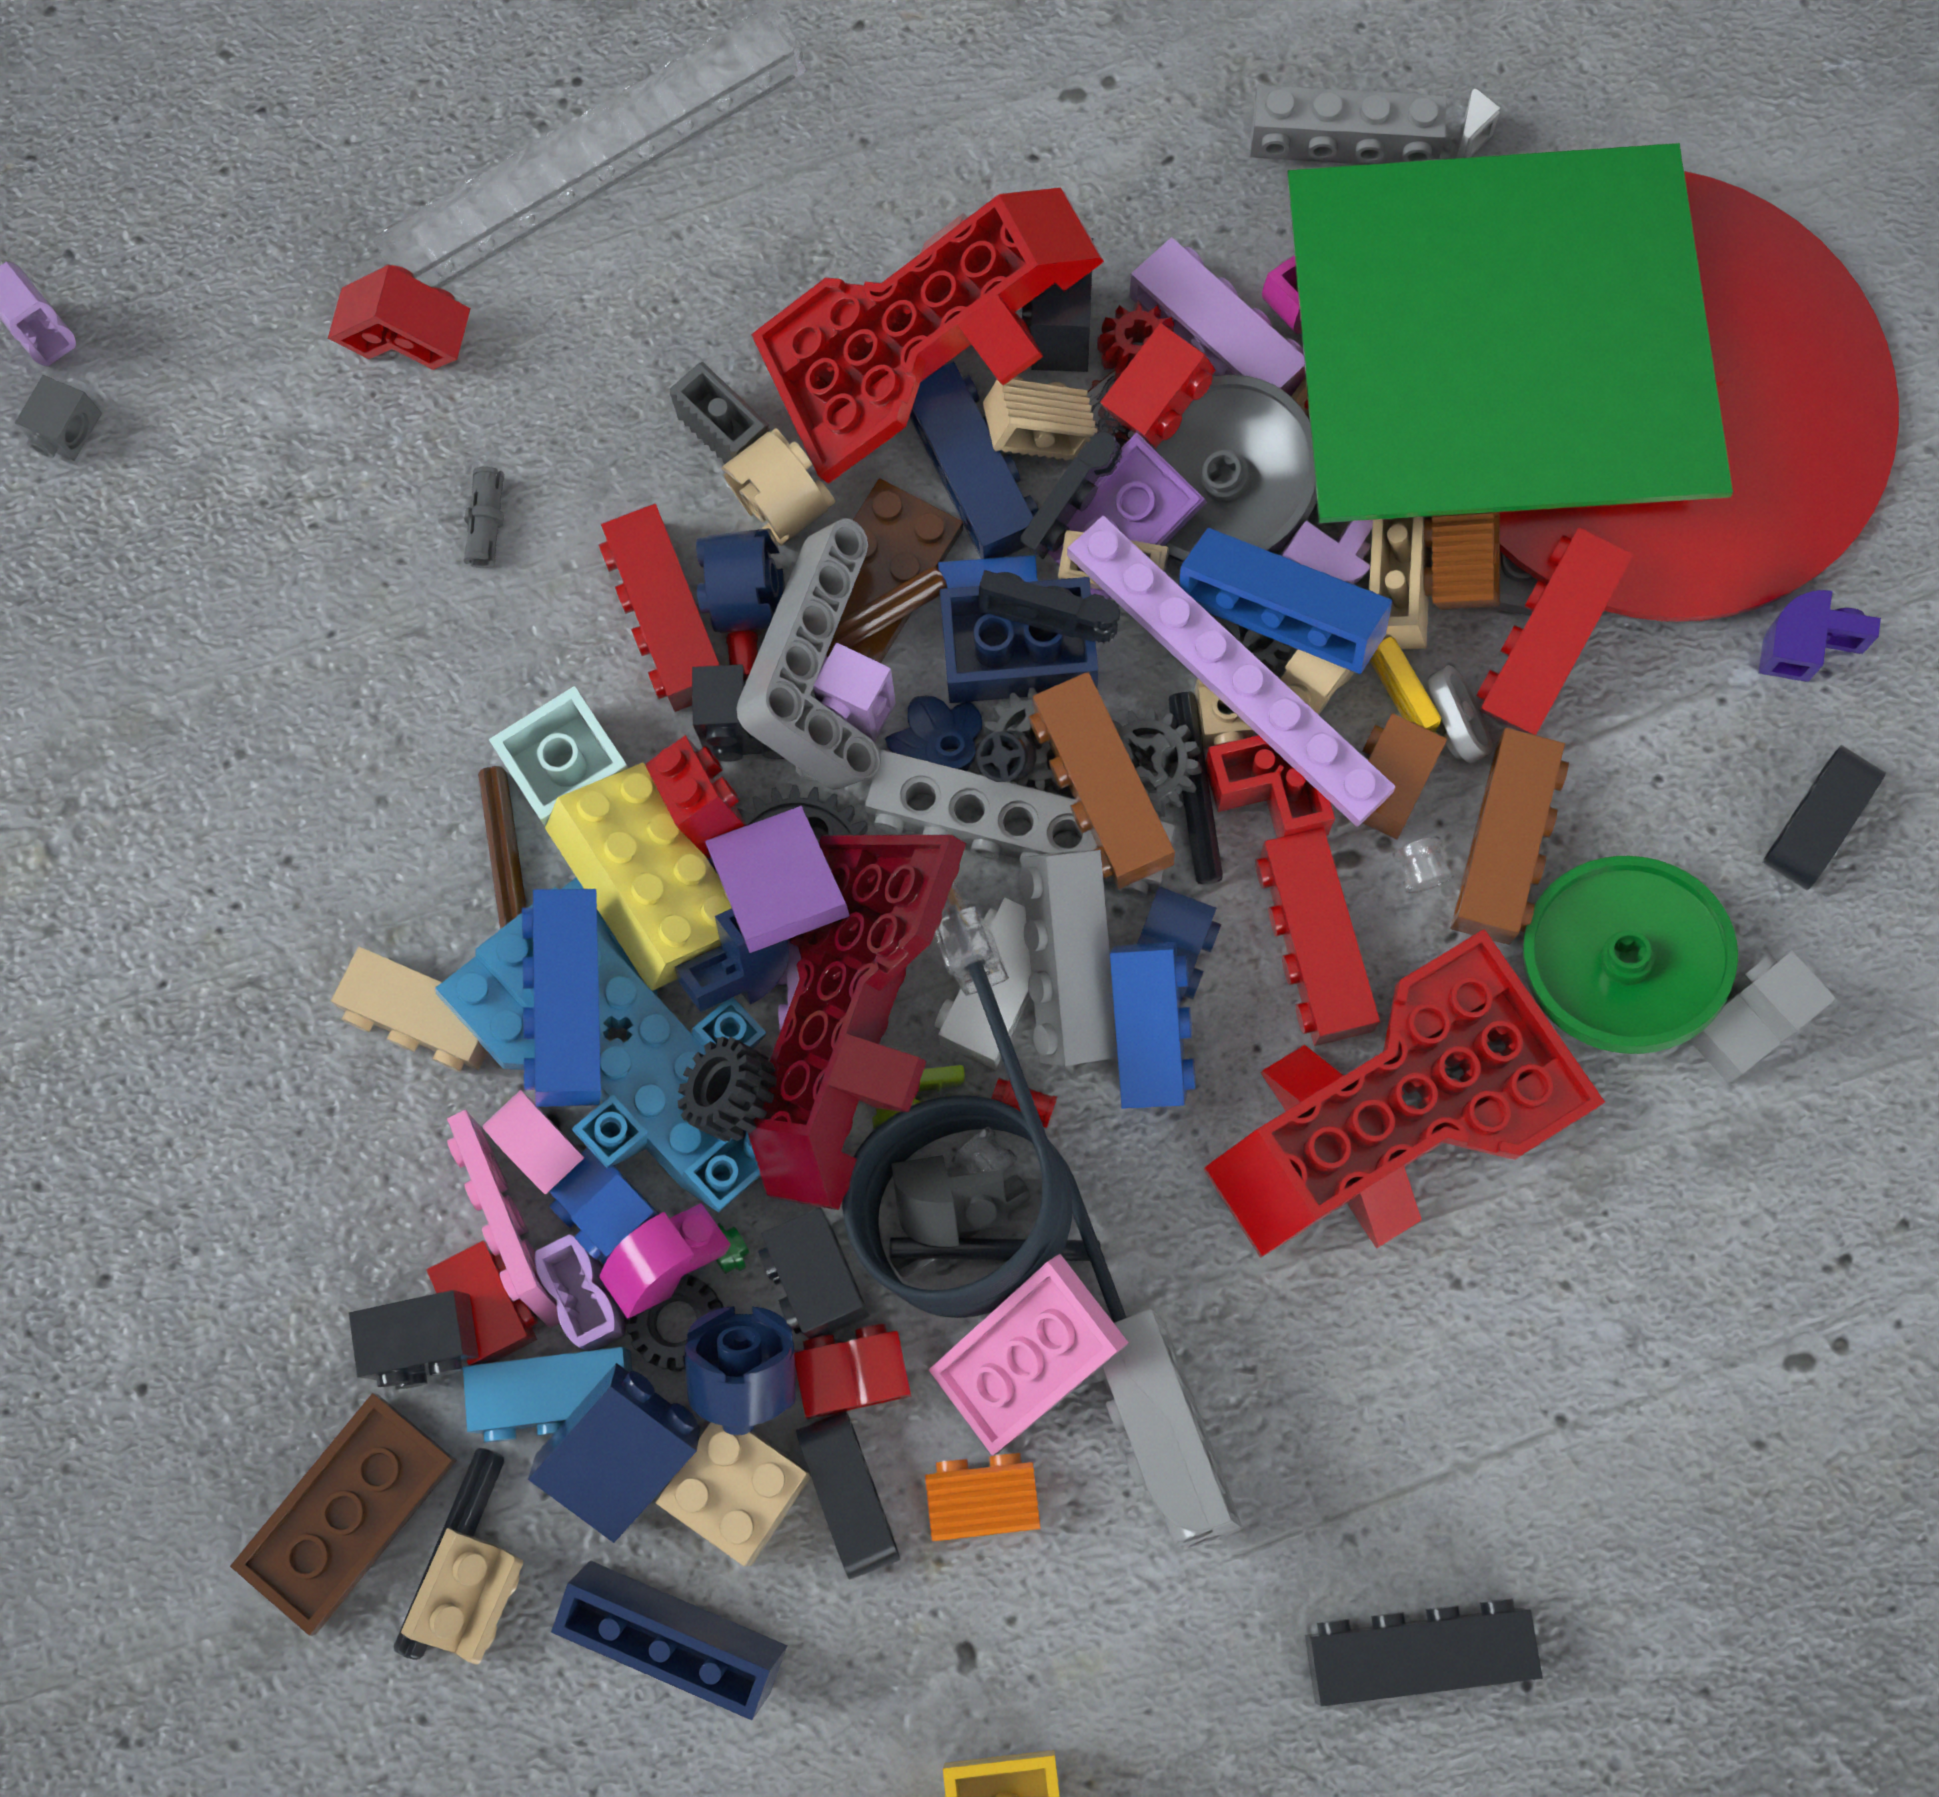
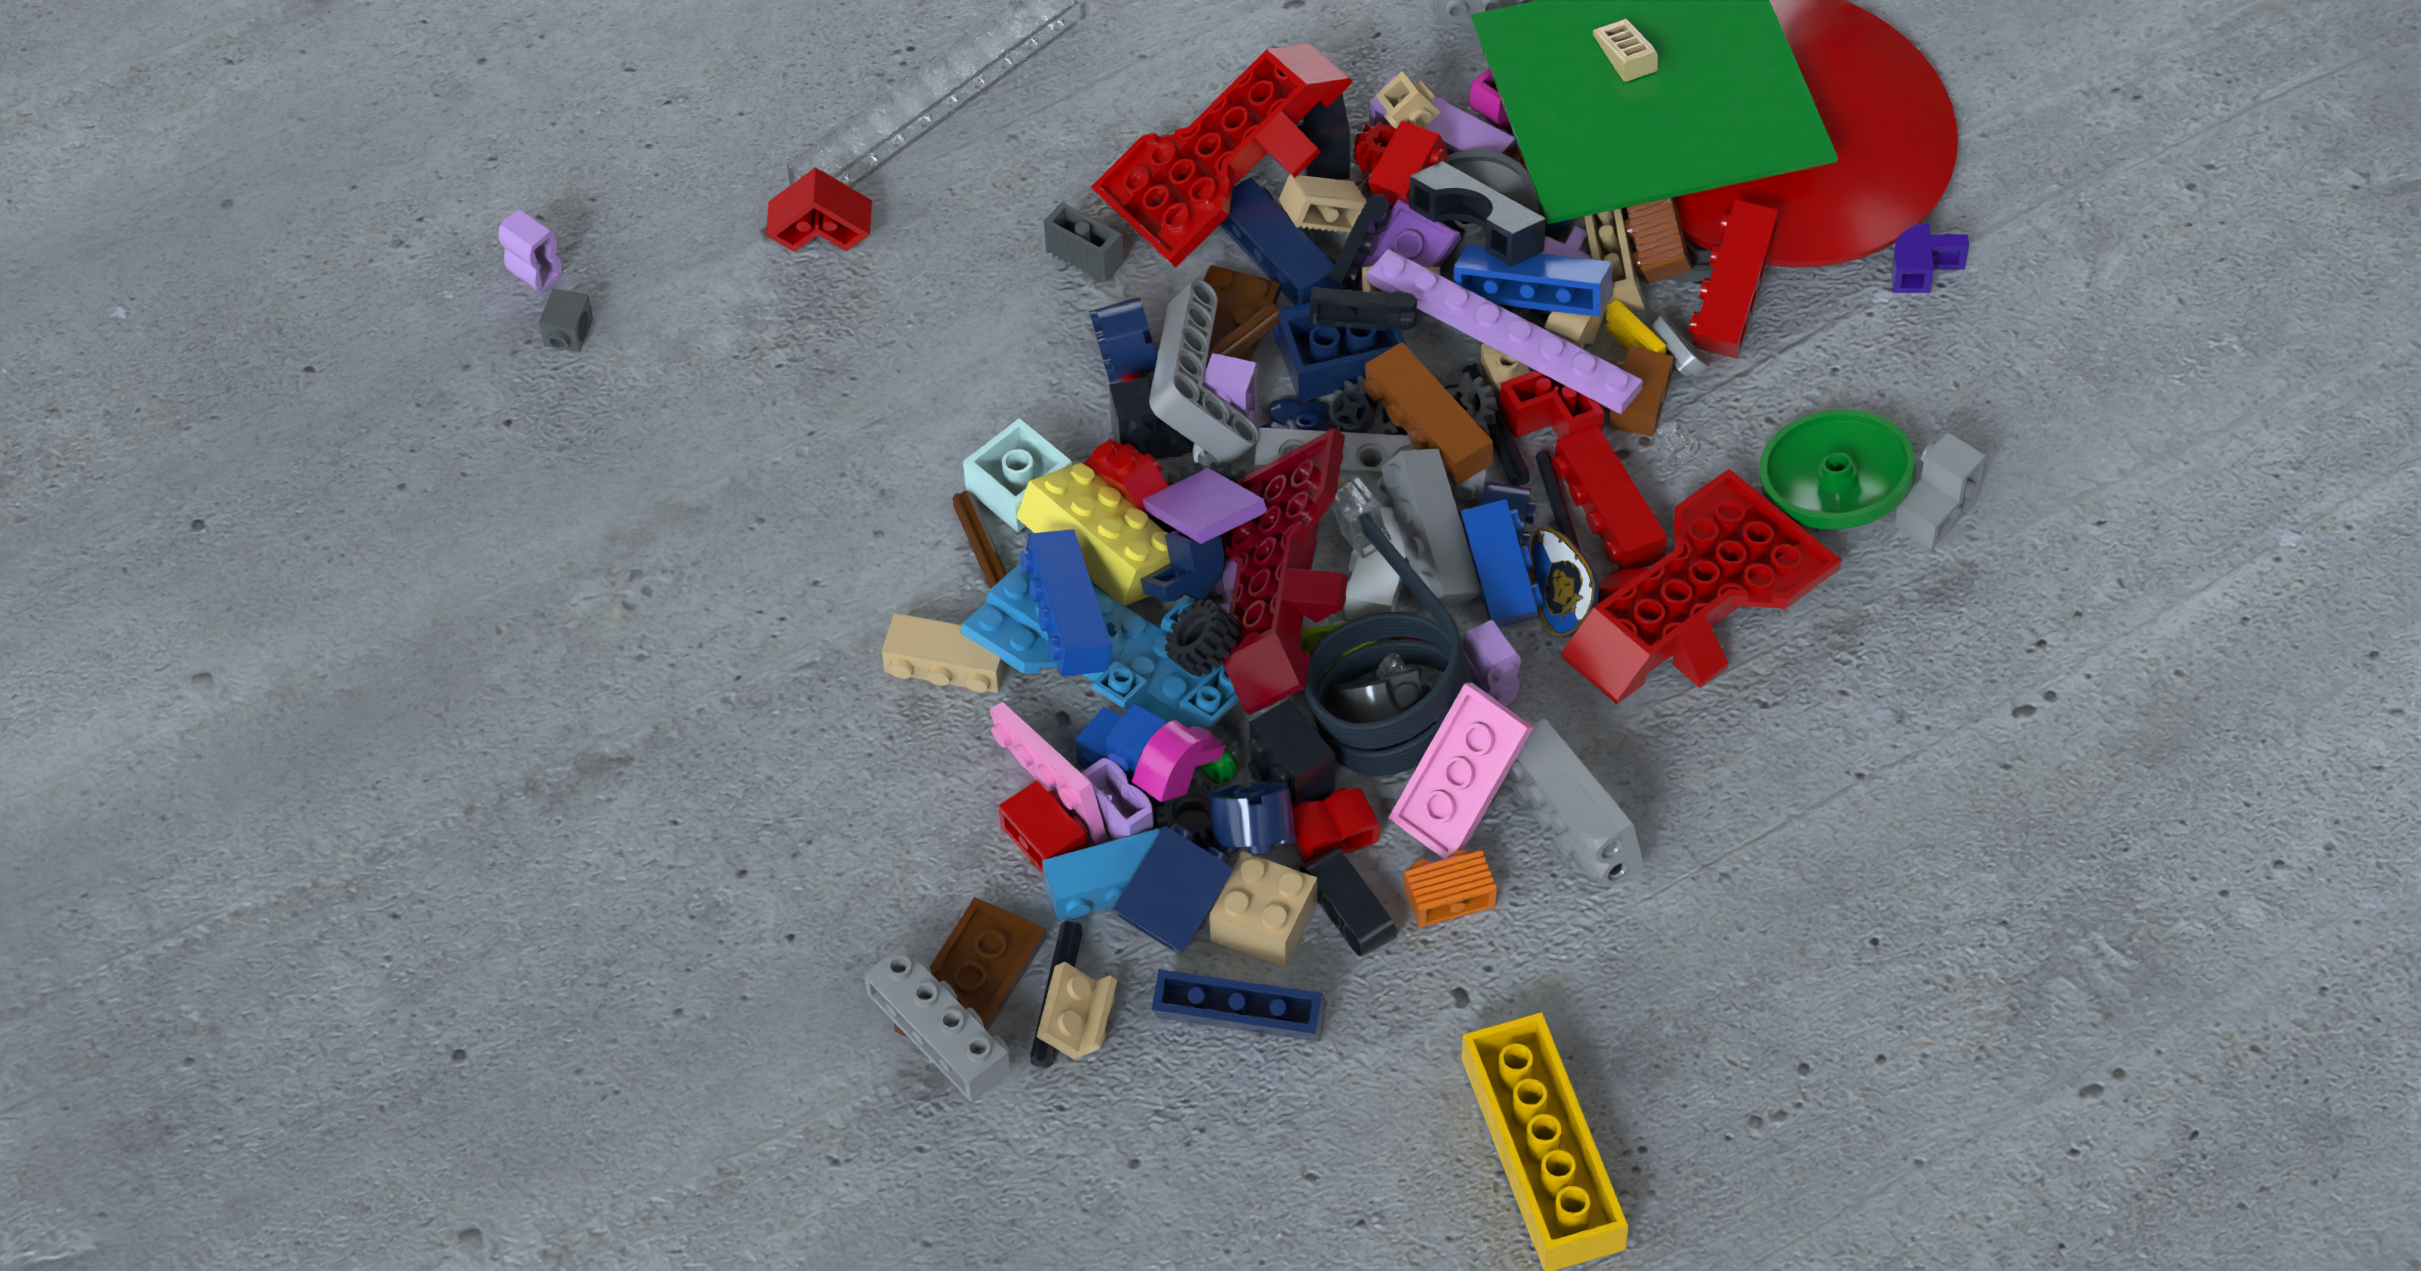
camera: 15 degrees left, 20 degrees down
(275, 1595) = (938, 1022): none -> light grey brick
(413, 1339) = (1000, 840): black brick -> none
(484, 517) = (913, 336): dark grey pin -> none
(533, 1142) = (1059, 708): bright pink brick -> none
(661, 600) = (1065, 367): red brick -> none
(776, 487) = (1137, 270): tan brick -> none
(1107, 1179) = (1493, 661): none -> lavender brick
(1176, 295) = (1408, 102): none -> tan brick
(1199, 446) = (1449, 194): none -> black arch
(1228, 1060) = (1564, 580): none -> shield
(1251, 944) = (1555, 496): none -> black bar
(1422, 1655) = (1793, 925): black brick -> none
(1489, 297) = (1632, 66): none -> tan slope
(1509, 836) = (1734, 411): dark orange brick -> none
(1824, 817) = (1959, 368): black beam -> none

